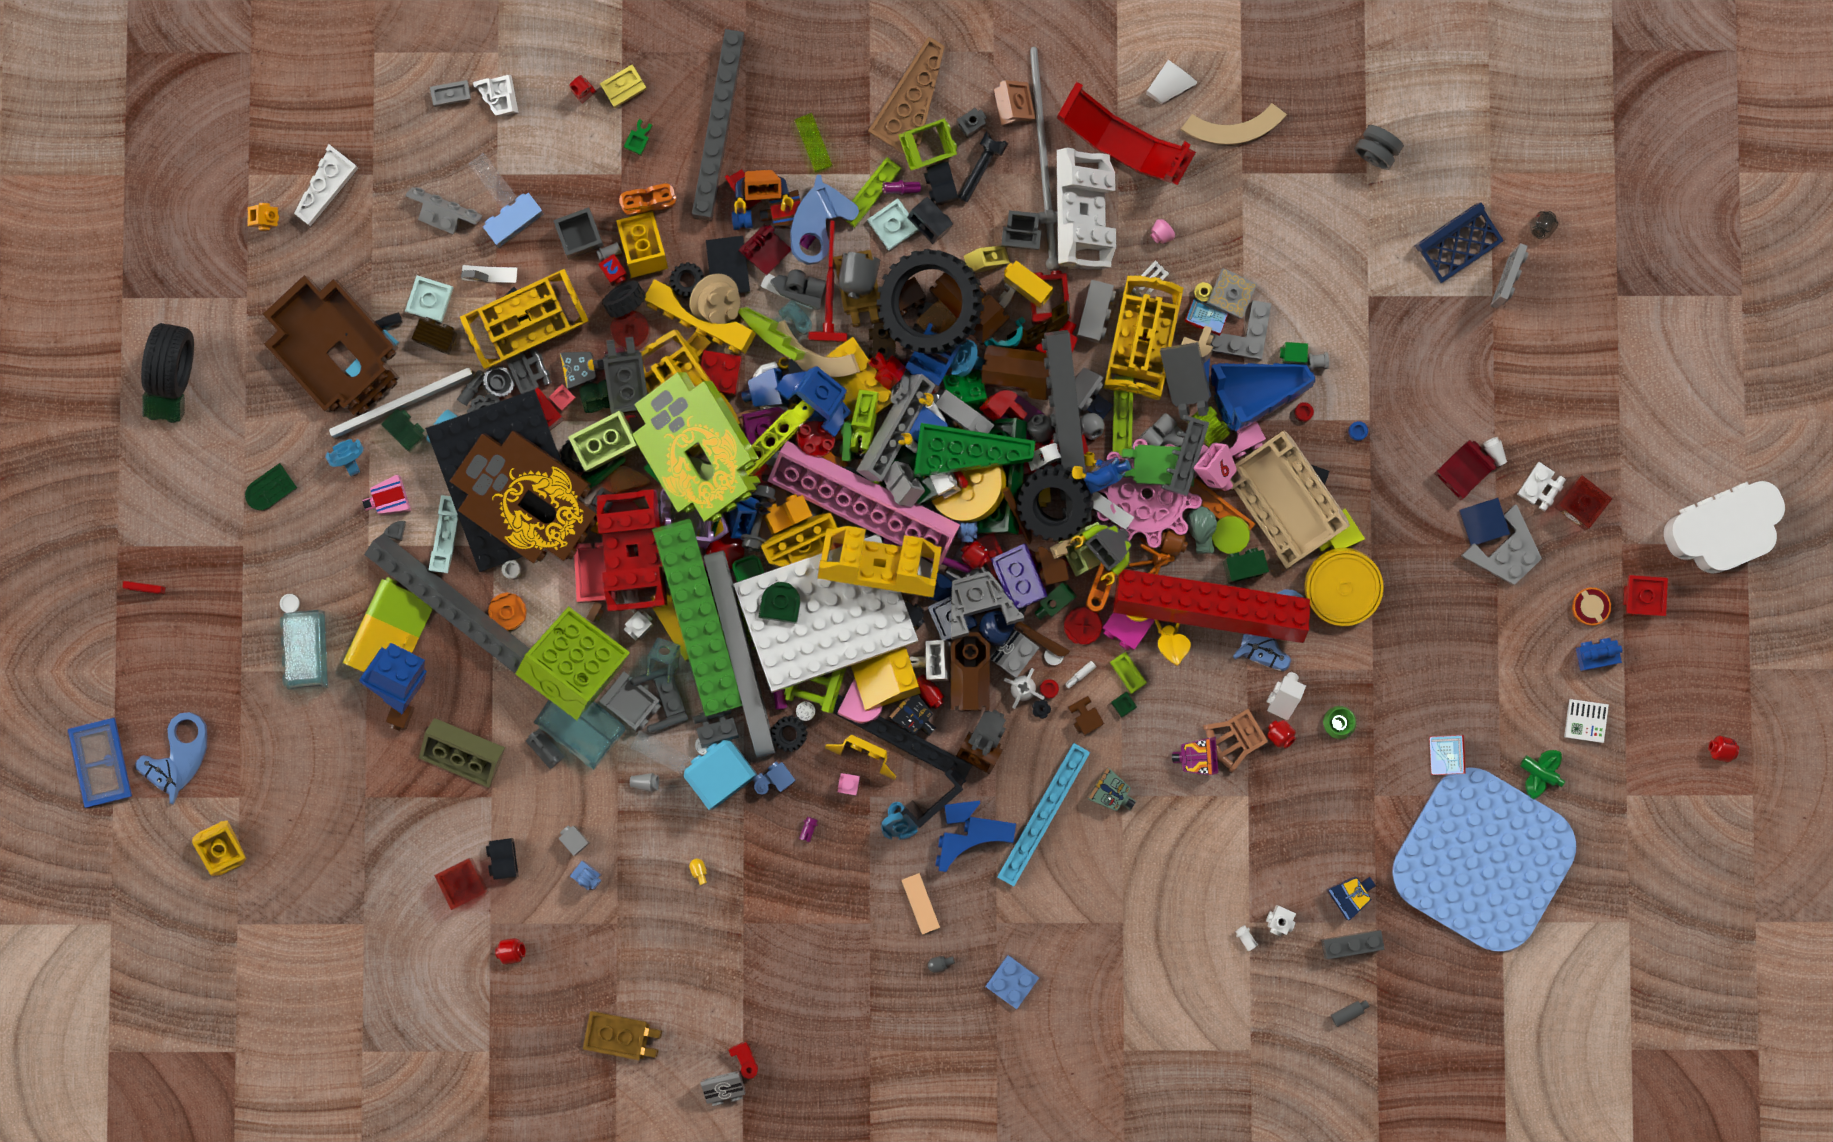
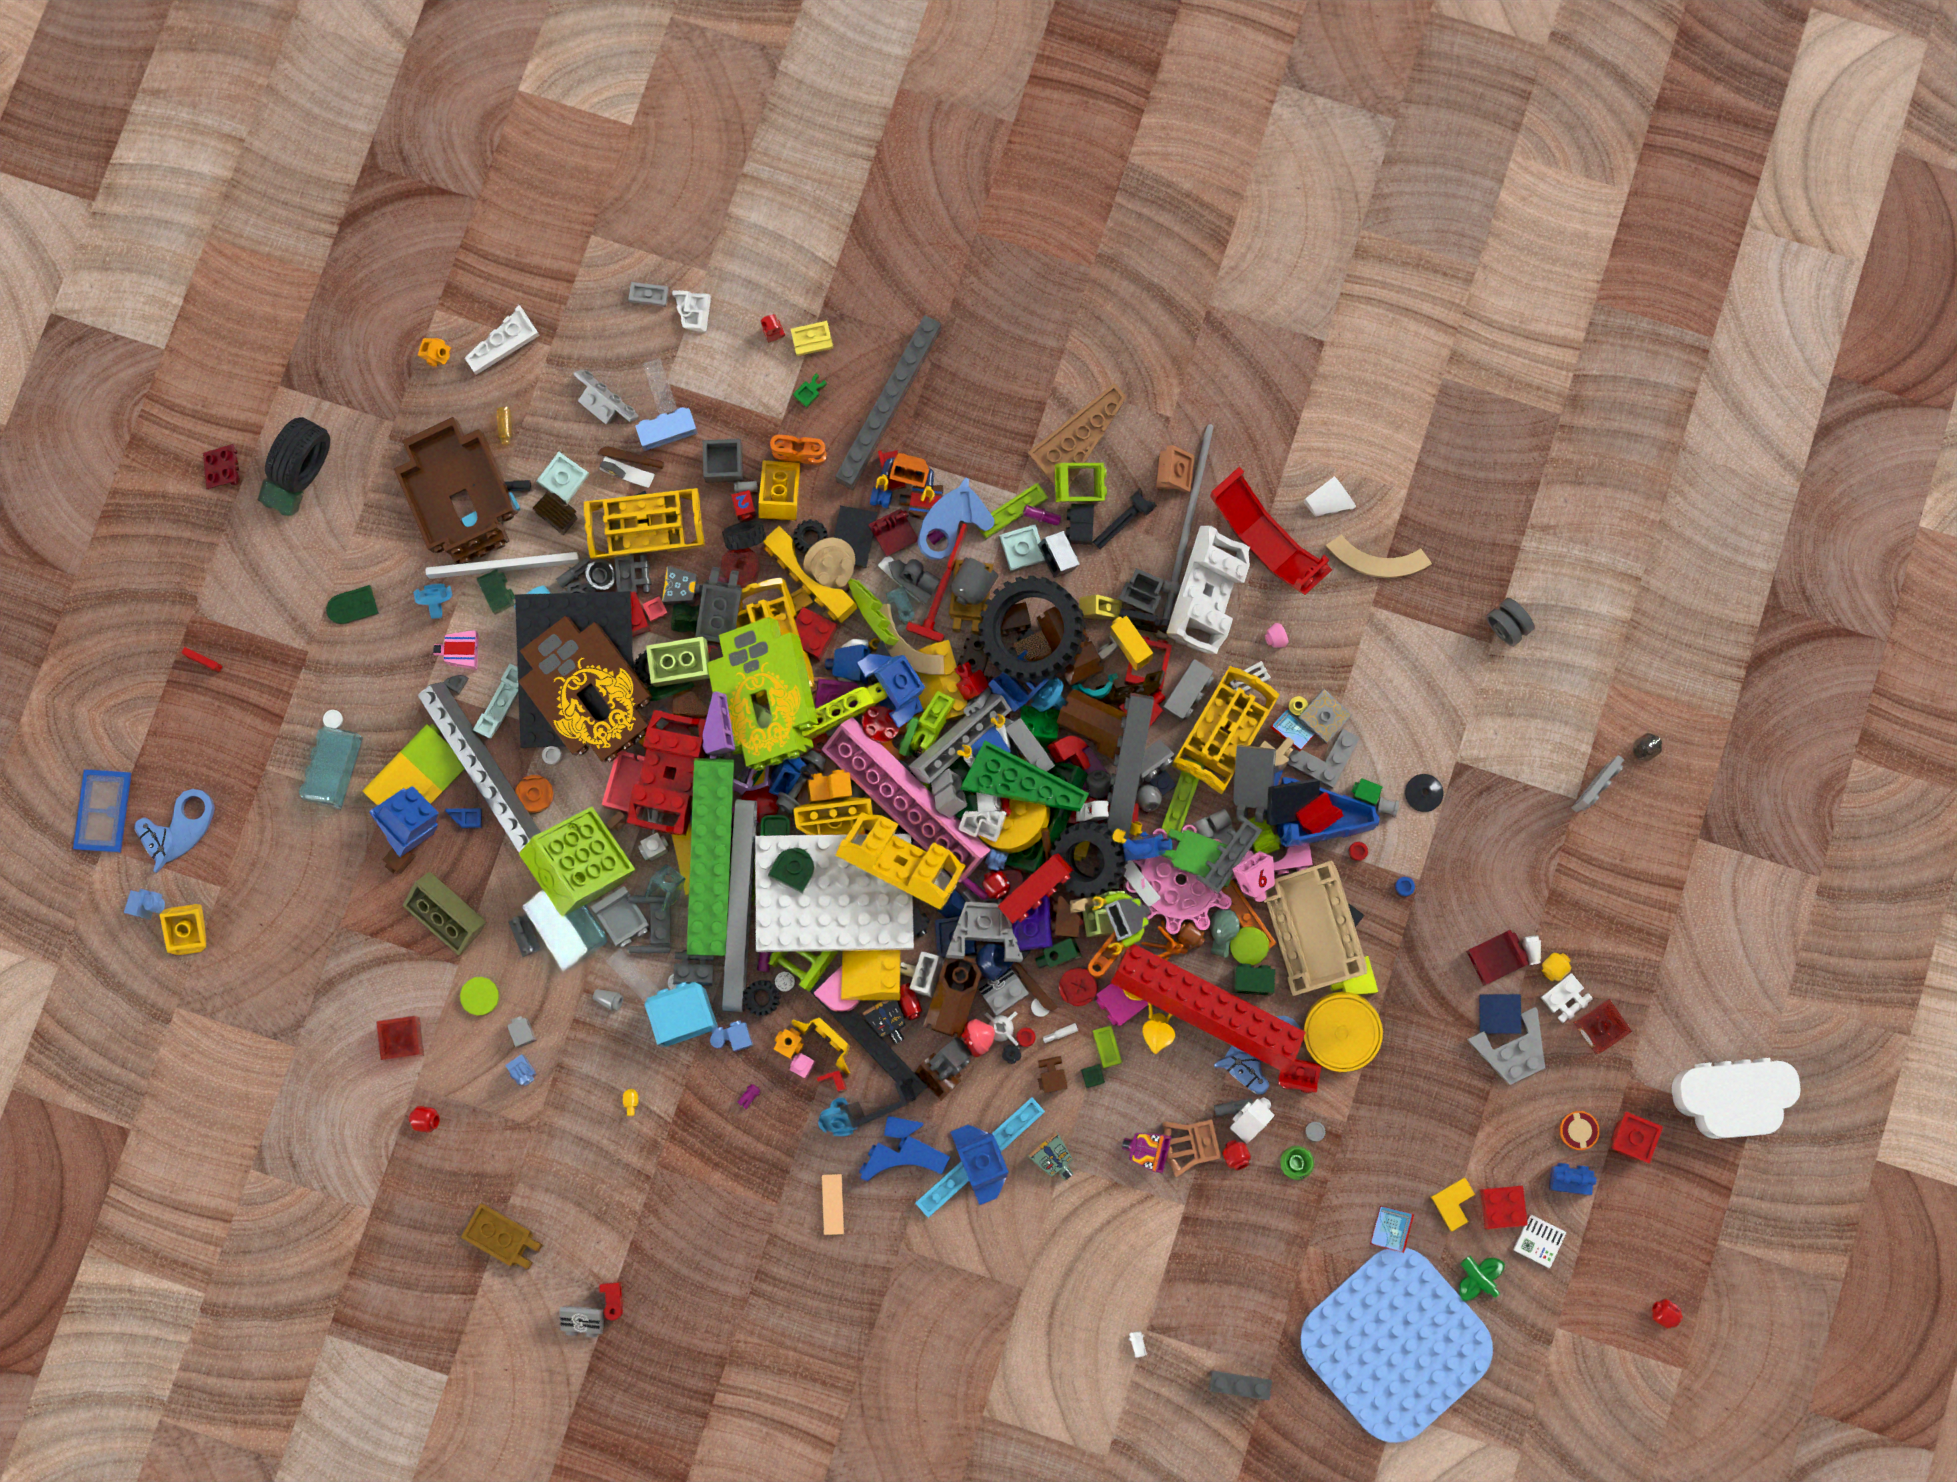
camera: 20 degrees right, 5 degrees down
(95, 395) = (221, 466): none -> dark red hinge
(173, 838) = (144, 903): none -> medium blue brick
(355, 266) = (504, 425): none -> clear yellow cylinder
(450, 655) = (466, 817): none -> blue tile
(467, 259) = (628, 456): none -> reddish brown piece
(502, 859) = (448, 1028): black brick -> none
(522, 819) = (479, 996): none -> lime tile
(665, 496) = (718, 730): none -> medium lavender slope
(813, 142) = (972, 447): clear neon green tile -> none
(825, 774) = (788, 1050): none -> light orange brick
(887, 785) = (838, 1079): none -> red panel
(940, 963) = (832, 1269): dark grey cylinder -> none
(945, 502) = (983, 823): none -> white slope
(971, 128) = (1125, 481): dark grey brick -> none
(1005, 703) = (978, 1037): none -> coral hair
(1012, 982) = (896, 1310): medium blue plate -> none
(1013, 548) = (1032, 890): none -> red brick
(1033, 258) = (1145, 622): none -> black plate
(1046, 817) = (981, 1161): none -> blue piece
(1229, 385) = (1288, 799): none -> black tile
(1256, 390) = (1318, 814): none -> red panel
(1262, 691) = (1231, 1107): none -> dark grey axle
(1287, 917) = (1184, 1335): white brick -> none
(1318, 641) = (1302, 1076): none -> red bracket
(1343, 344) = (1417, 799): none -> black dish
(1347, 687) = (1315, 1131): none -> light grey piece
(1349, 1012) = (1215, 1452): dark grey cylinder -> none
(1351, 895) = (1254, 1336): torso -> none
(1454, 227) = (1556, 721): dark blue fence -> none
(1490, 712) = (1448, 1200): none -> yellow tile
(1523, 460) = (1556, 966): none -> yellow head
(1544, 700) = (1503, 1207): none -> red brick

